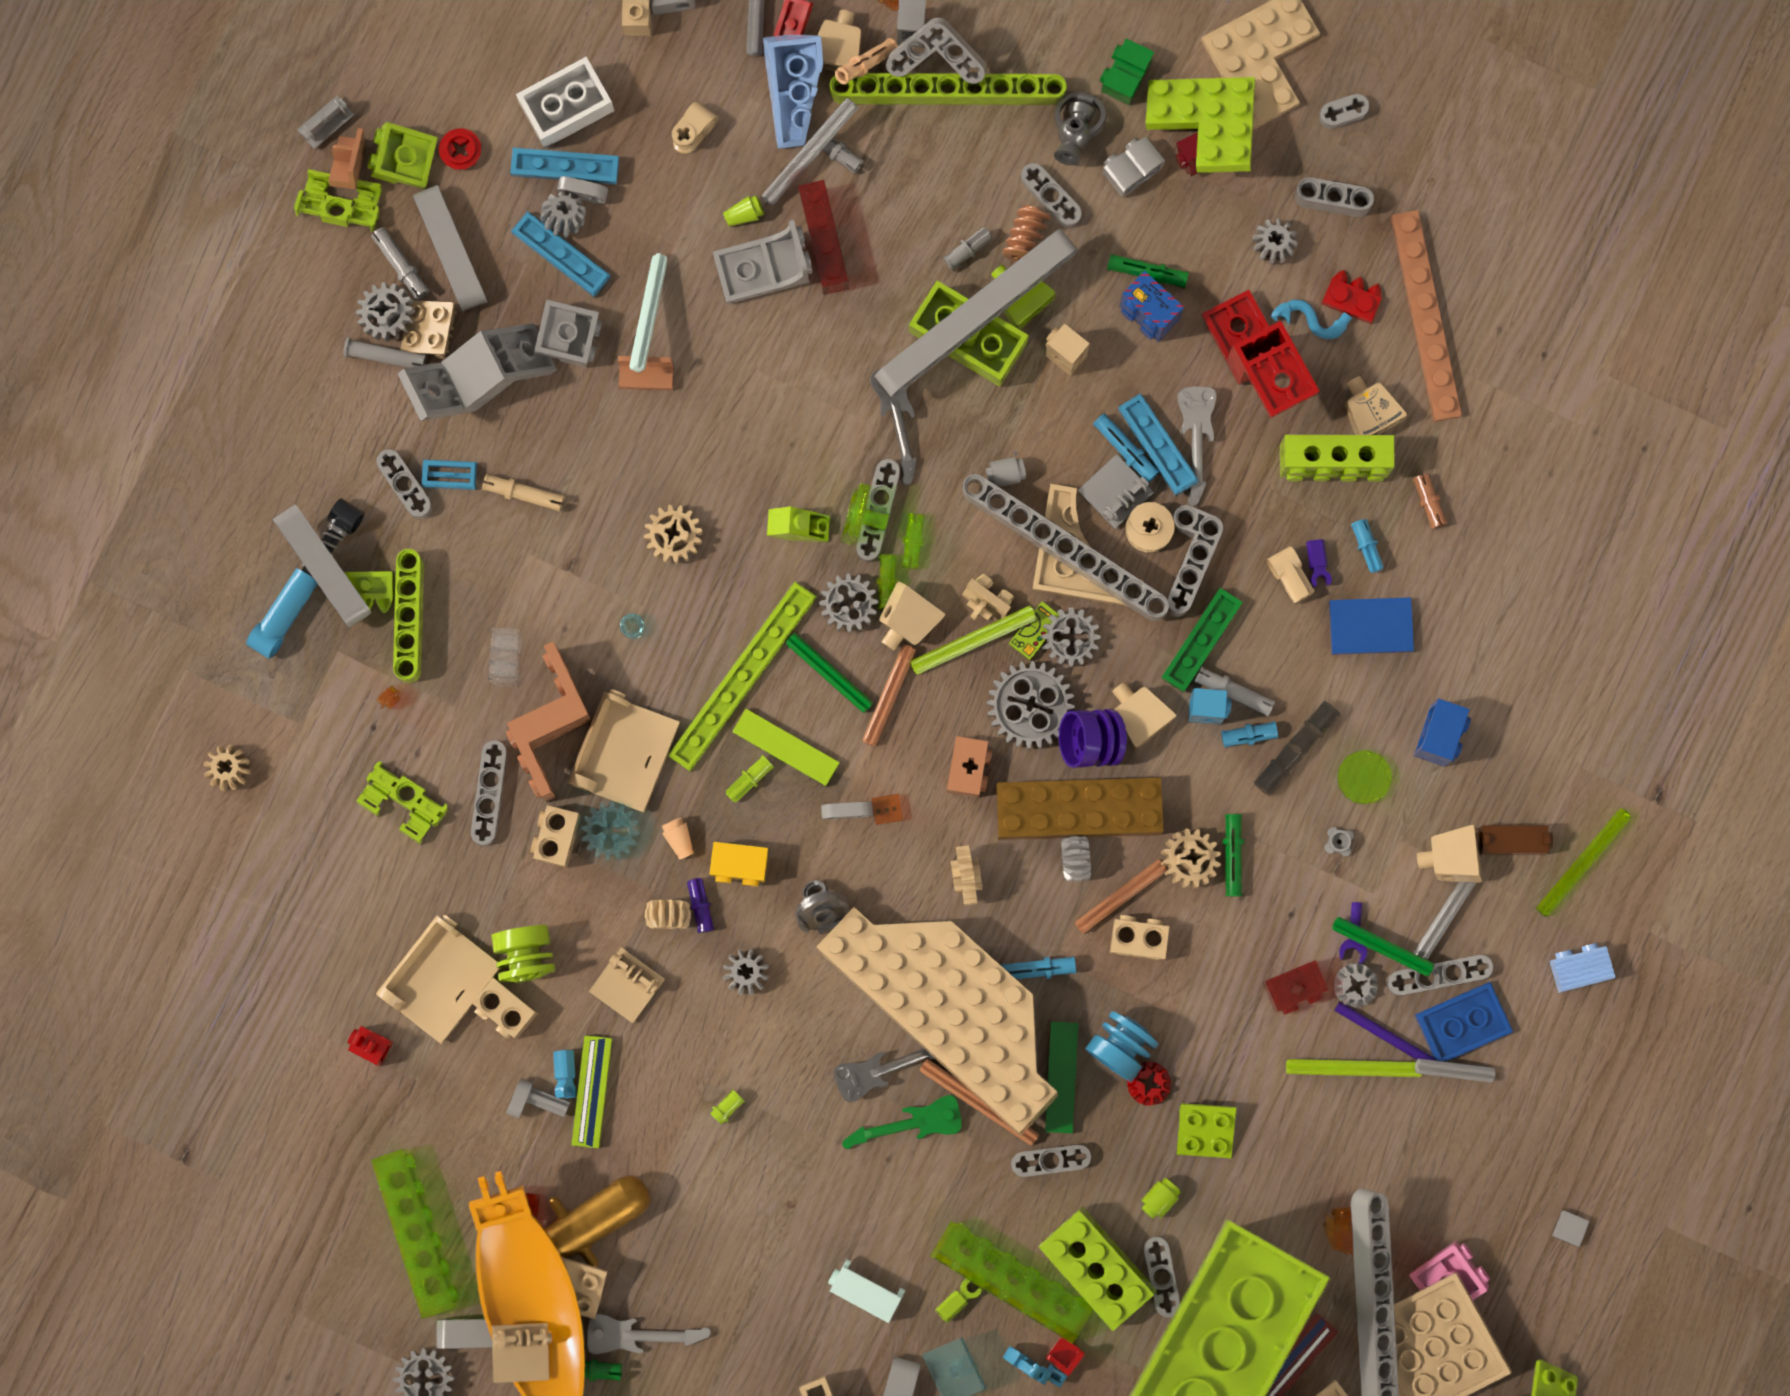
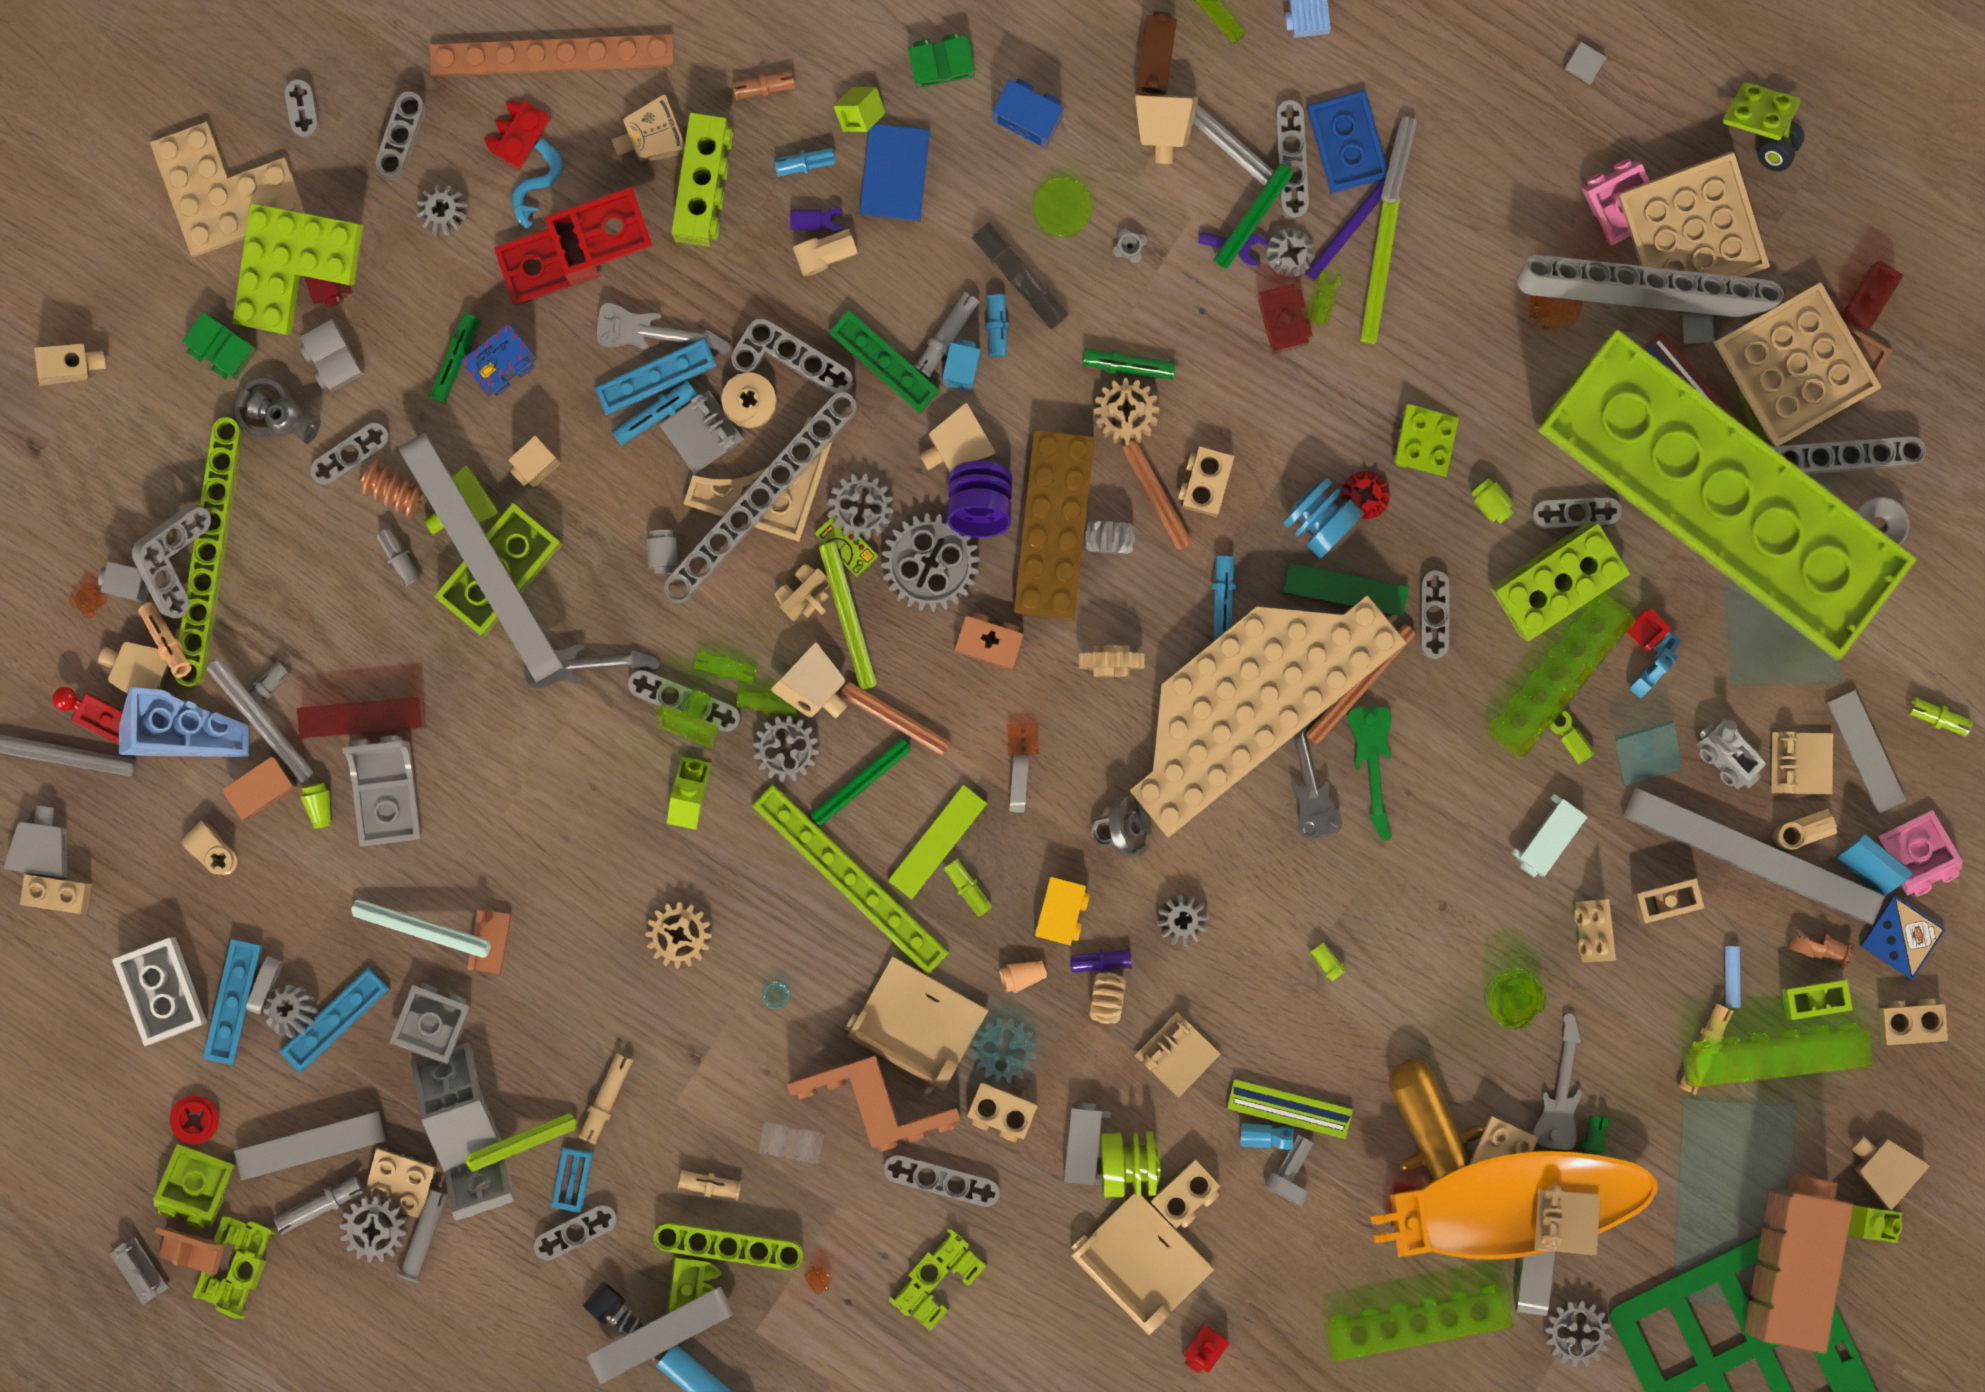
camera: 90 degrees left, 5 degrees up
(459, 592) = (709, 1185): none -> tan pin
(474, 423) = (520, 1142): none -> lime axle
(536, 911) = (1083, 1144): none -> light grey brick
(715, 1279) = (1514, 998): none -> clear neon green cone
(749, 160) = (258, 789): none -> nougat panel
(786, 1344) = (1595, 931): none -> tan hinge
(1317, 1021) = (1324, 300): none -> clear neon green bar
(1345, 1364) = (1697, 328): none -> flat silver tile
(1422, 586) = (859, 109): none -> lime panel
(1476, 652) = (941, 61): none -> green brick

